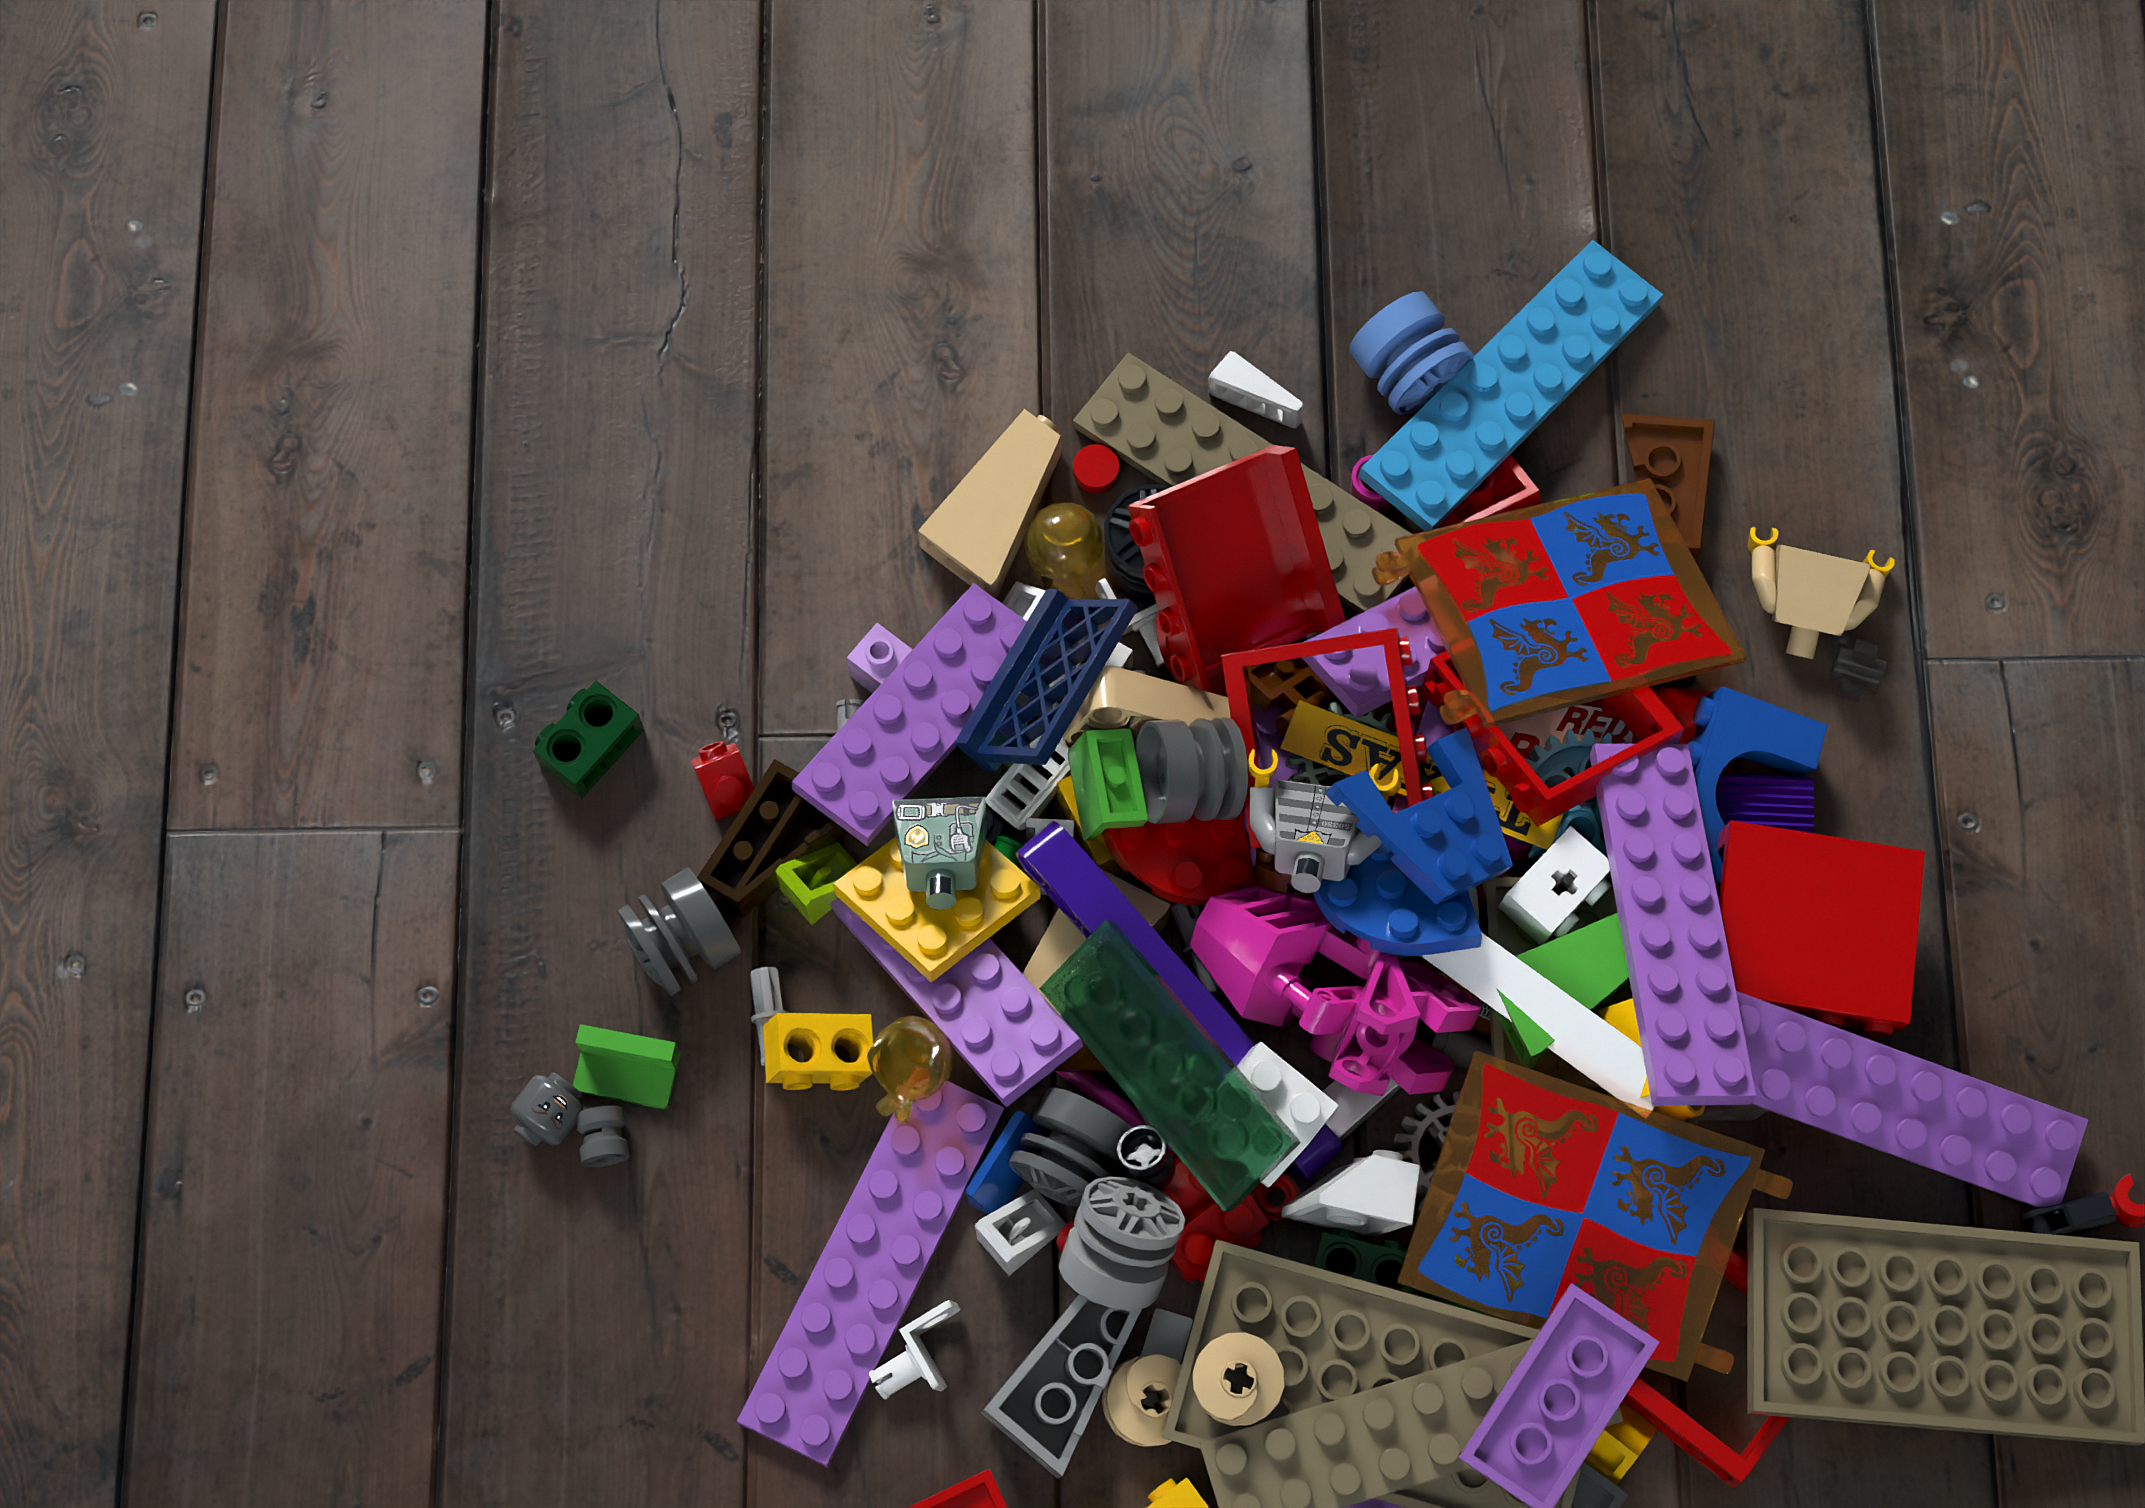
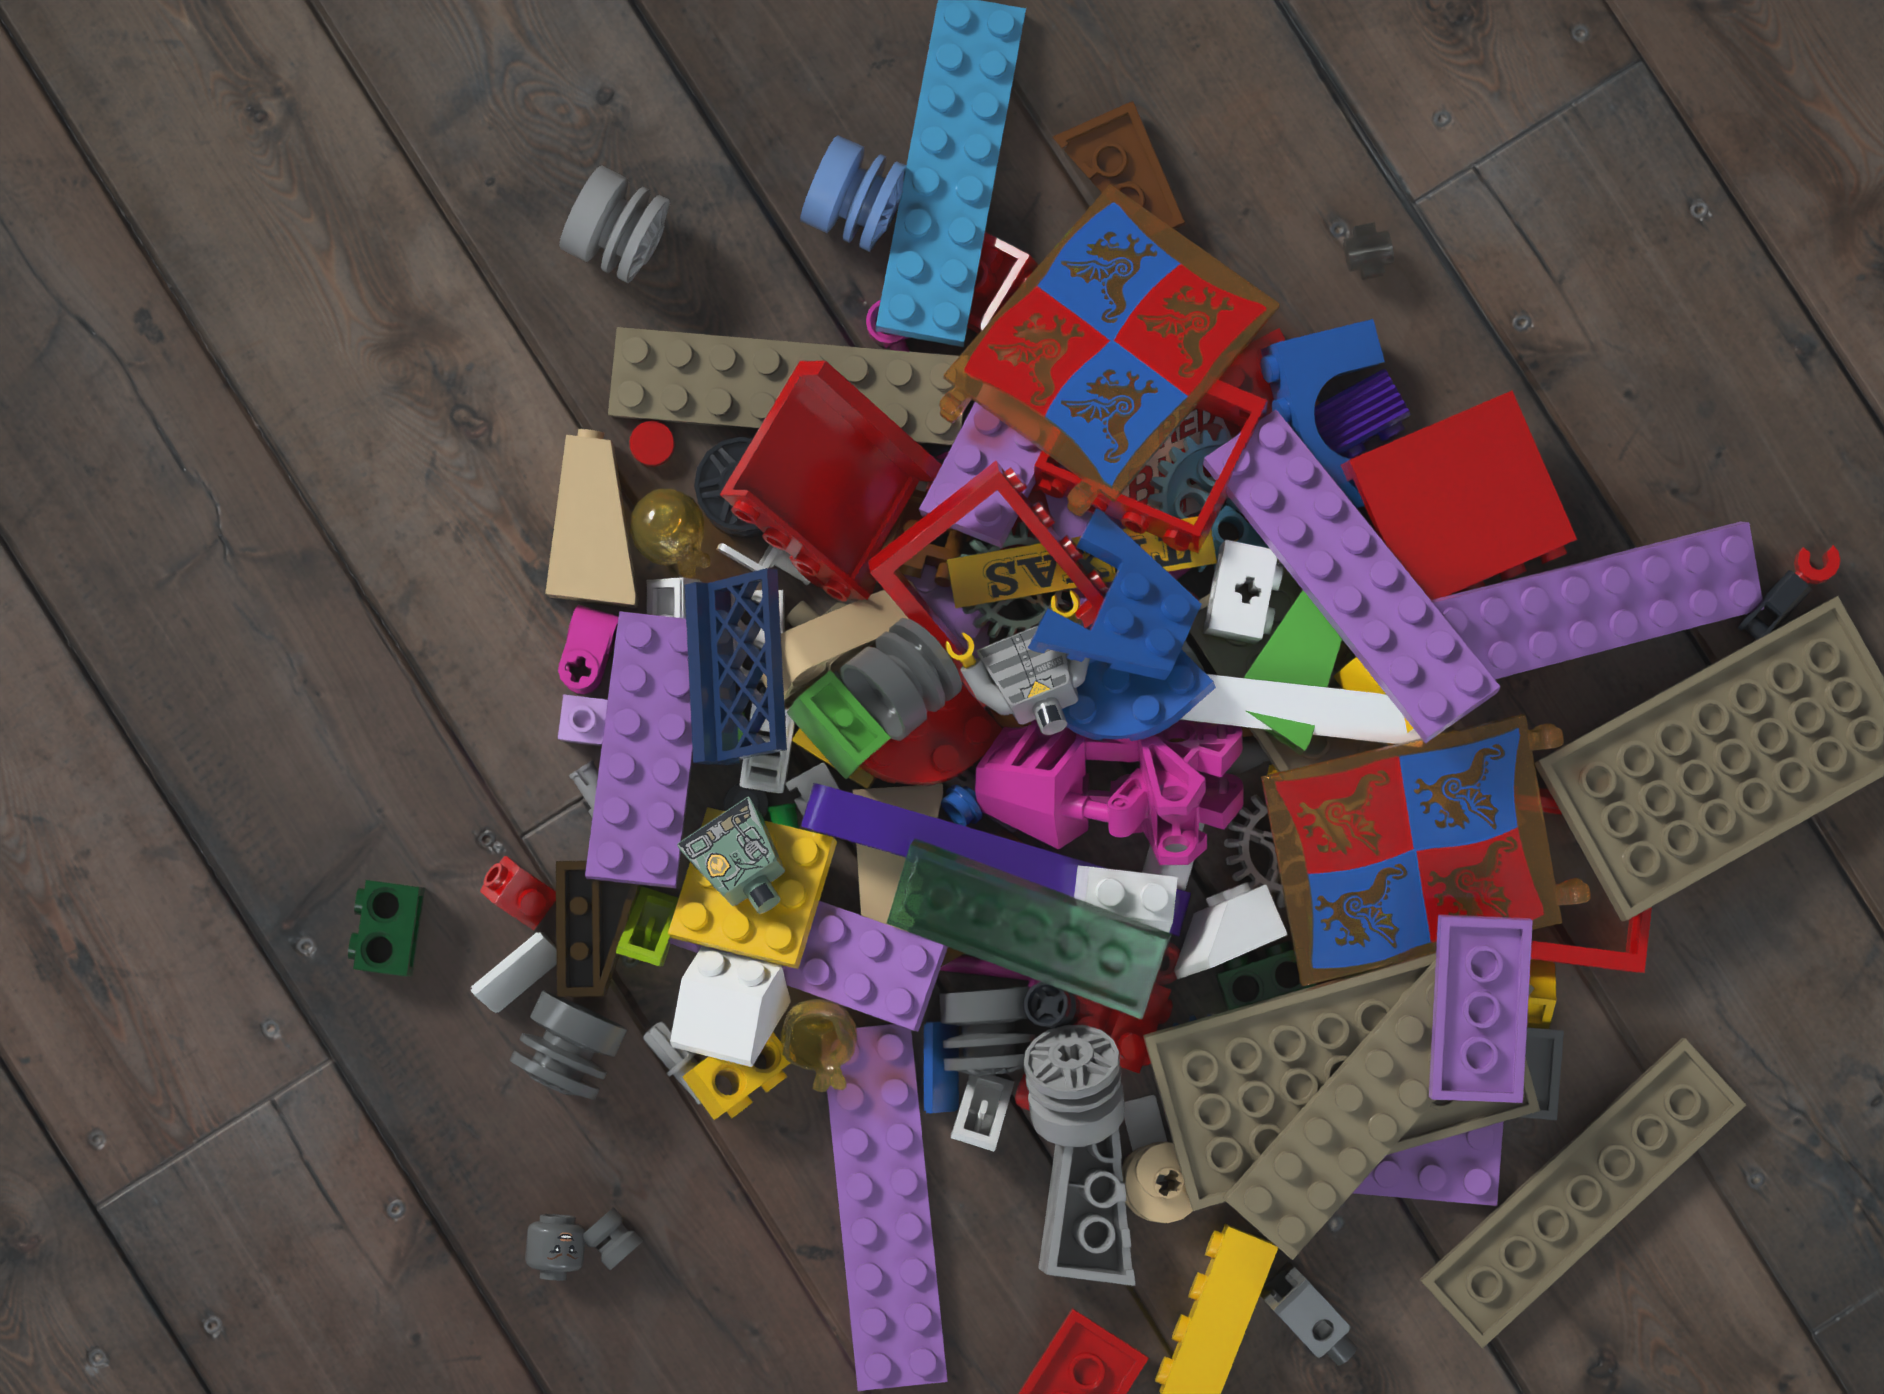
camera: 35 degrees left, 15 degrees up
(626, 1067) = (593, 1173): bright green panel -> none
(672, 845) = (516, 972): none -> white slope
(847, 981) = (728, 1006): none -> white slope
(916, 1359) = (965, 1261): white bracket -> none
(924, 600) = (591, 641): none -> dark pink piece
(1177, 932) = (961, 805): none -> blue plate
(1181, 260) = (610, 222): none -> light grey wheel
(1252, 390) = (734, 299): white slope -> none
(1262, 1366) = (1207, 1126): tan piece -> none
(1814, 590) = (1296, 202): tan torso -> none

